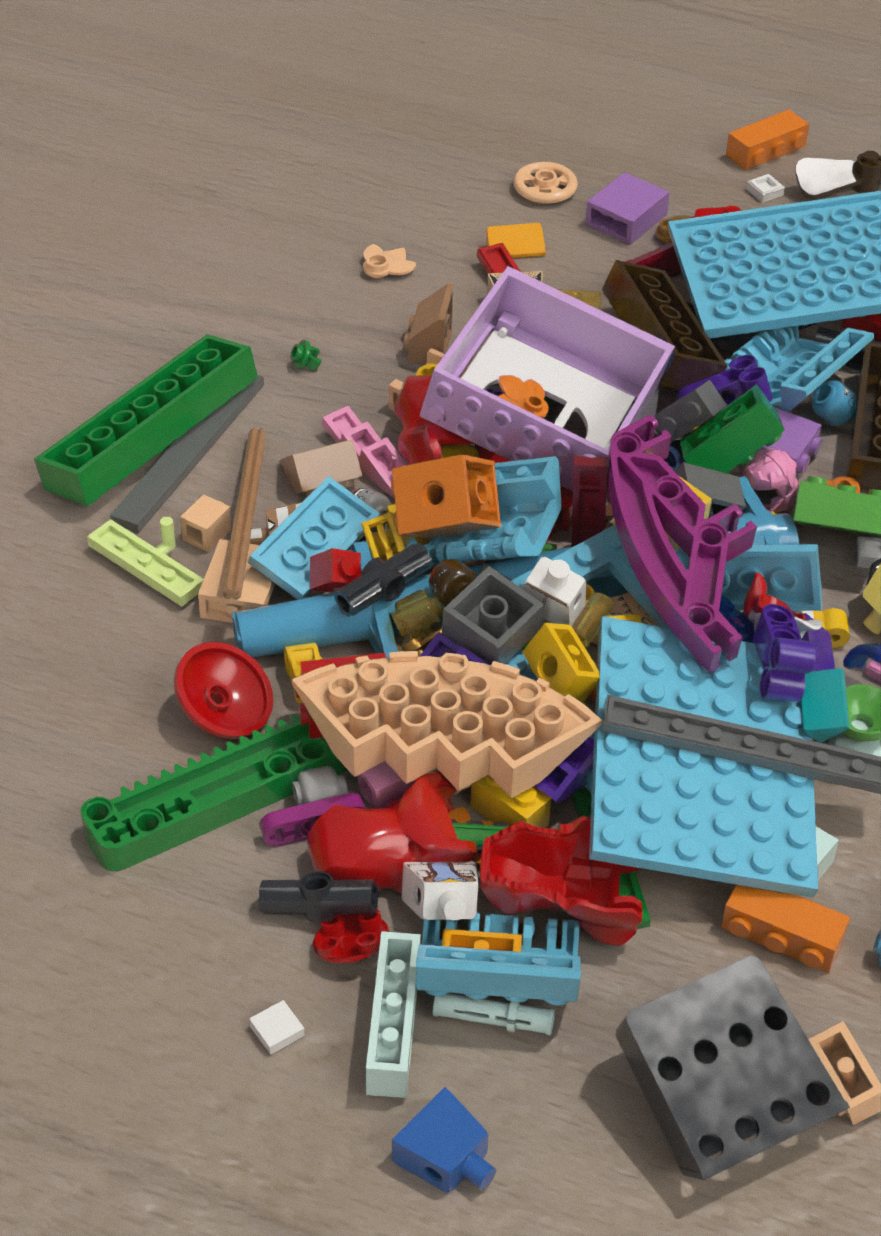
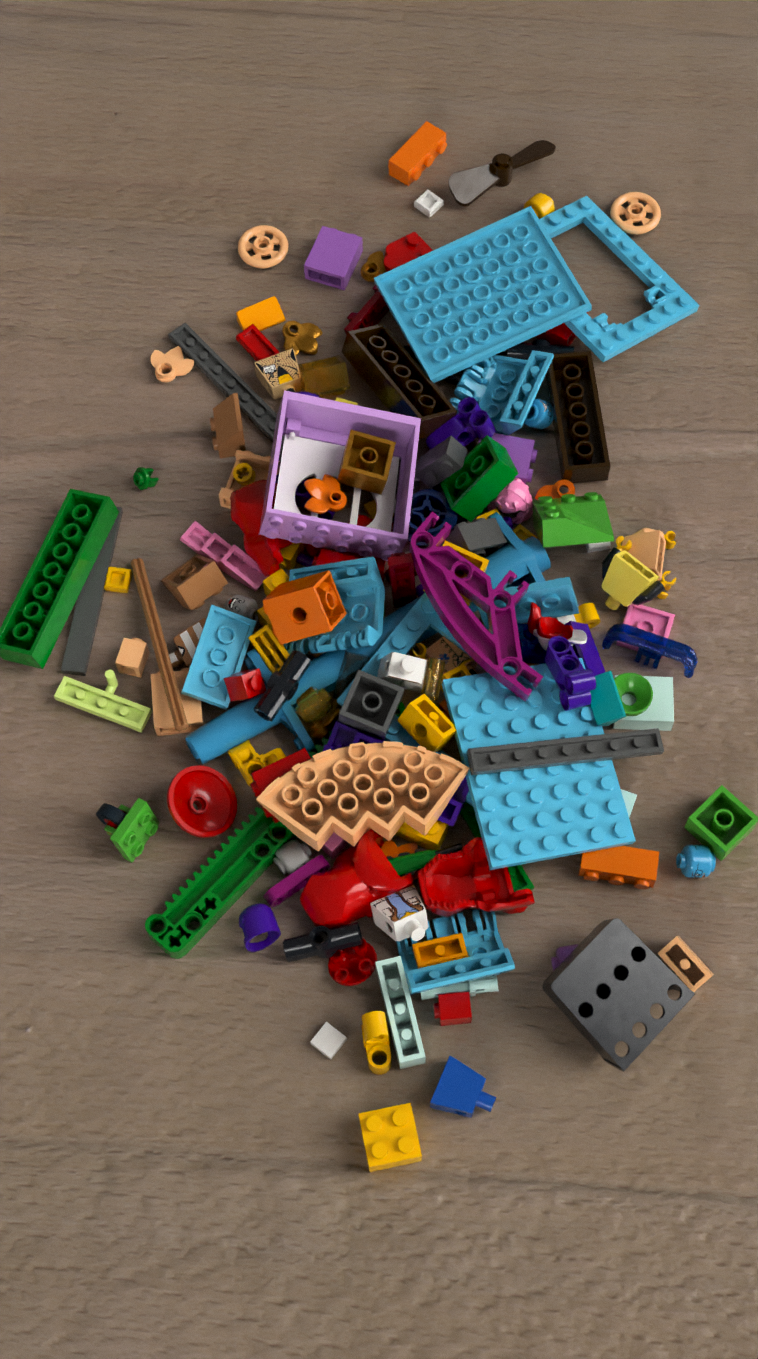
camera: 15 degrees left, 20 degrees up
(116, 693) = (129, 827): none -> bright green plate
(226, 447) = (118, 579): none -> yellow tile
(237, 844) = (258, 920): none -> dark purple helmet
(313, 1174) = (390, 1137): none -> yellow brick
(345, 1039) = (376, 1040): none -> yellow piece
(436, 274) = (225, 379): none -> dark grey tile
(450, 579) = (332, 676): dark brown head -> none
(474, 1035) = (453, 1009): none -> red brick
(559, 270) = (303, 339): none -> pearl gold plate
(587, 377) = (366, 462): none -> pearl gold brick

